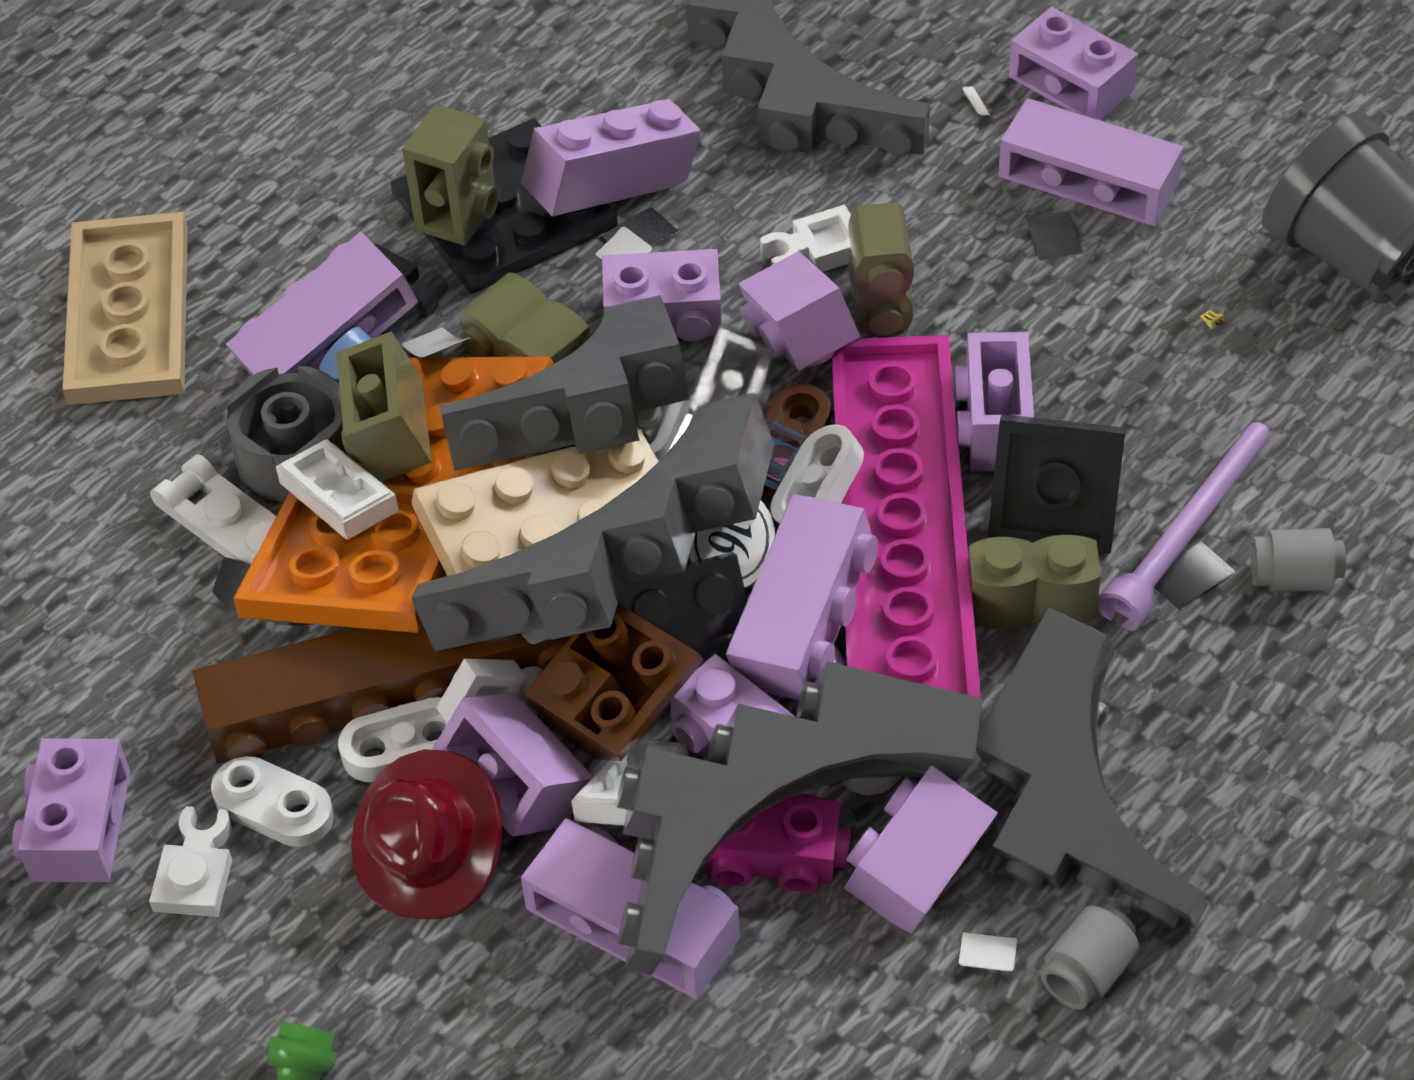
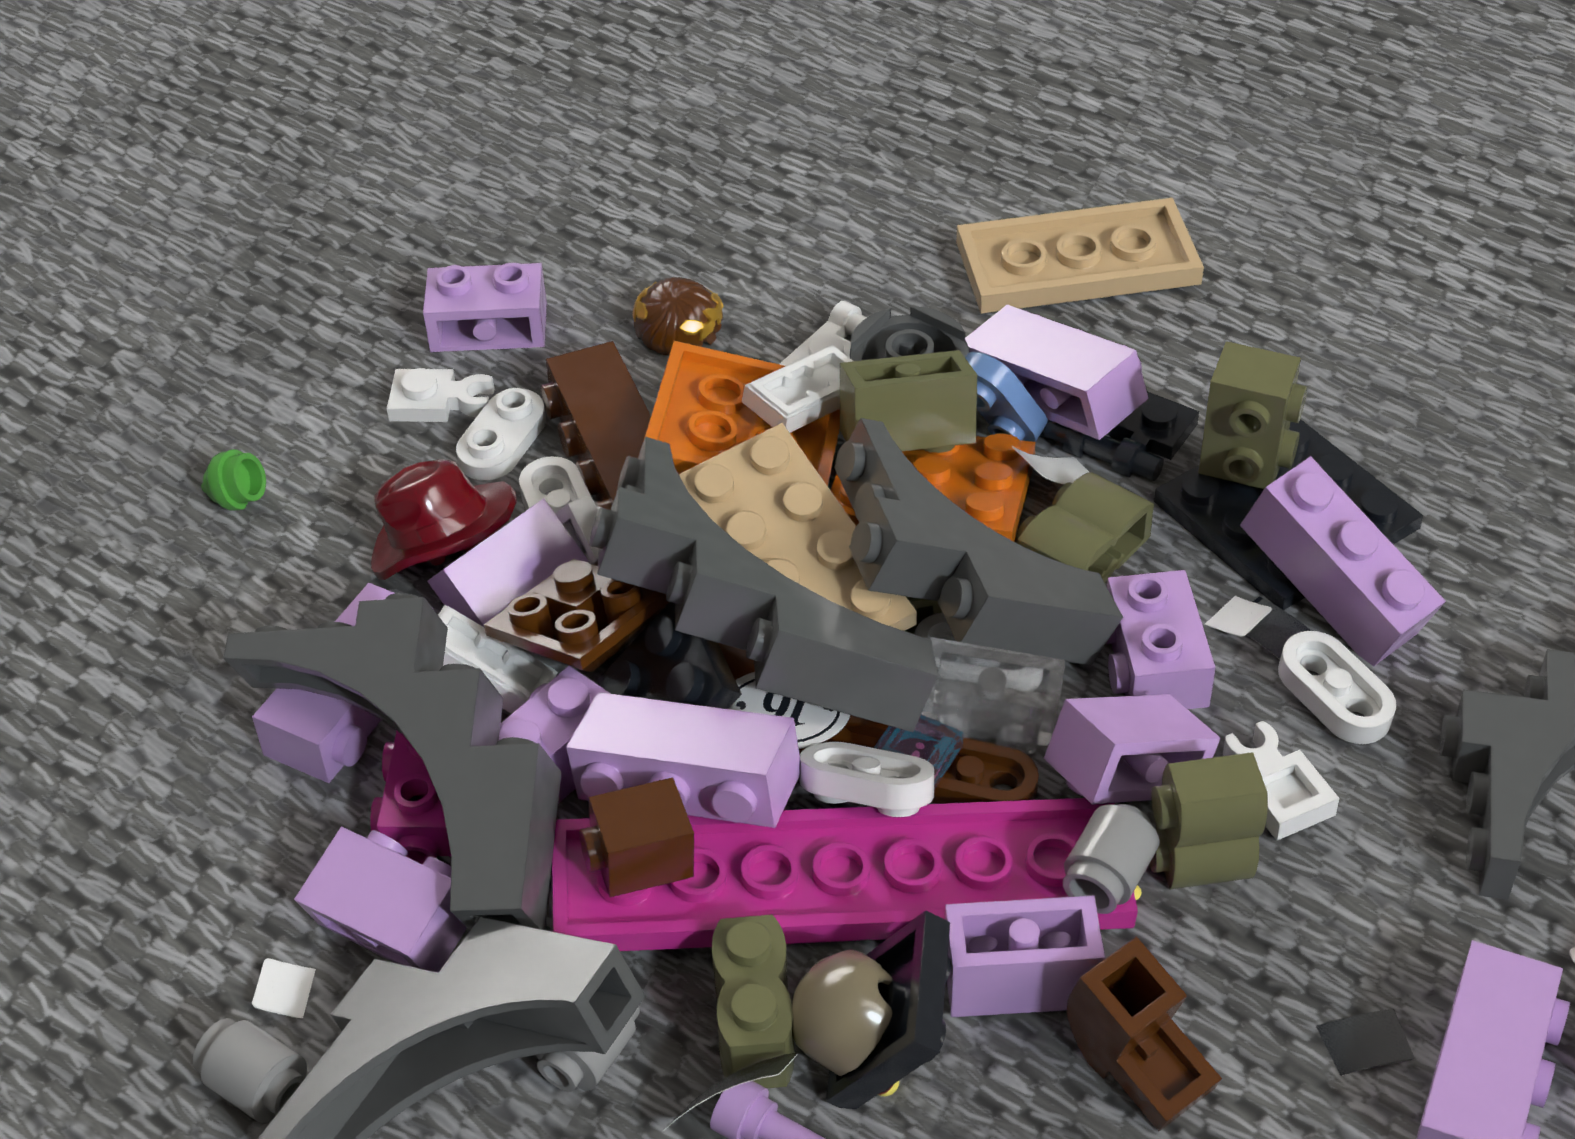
camera: 85 degrees right, 5 degrees down
(128, 638) = (677, 312): none -> reddish brown hair
(715, 195) = (1339, 689): none -> white plate
(896, 622) = (639, 837): none -> reddish brown brick
(914, 331) = (1111, 856): none -> light grey brick
(1058, 502) = (840, 1010): none -> dark tan hair
(1072, 337) = (1127, 1030): none -> reddish brown brick
(1121, 594) = (759, 1070): none -> black sticker

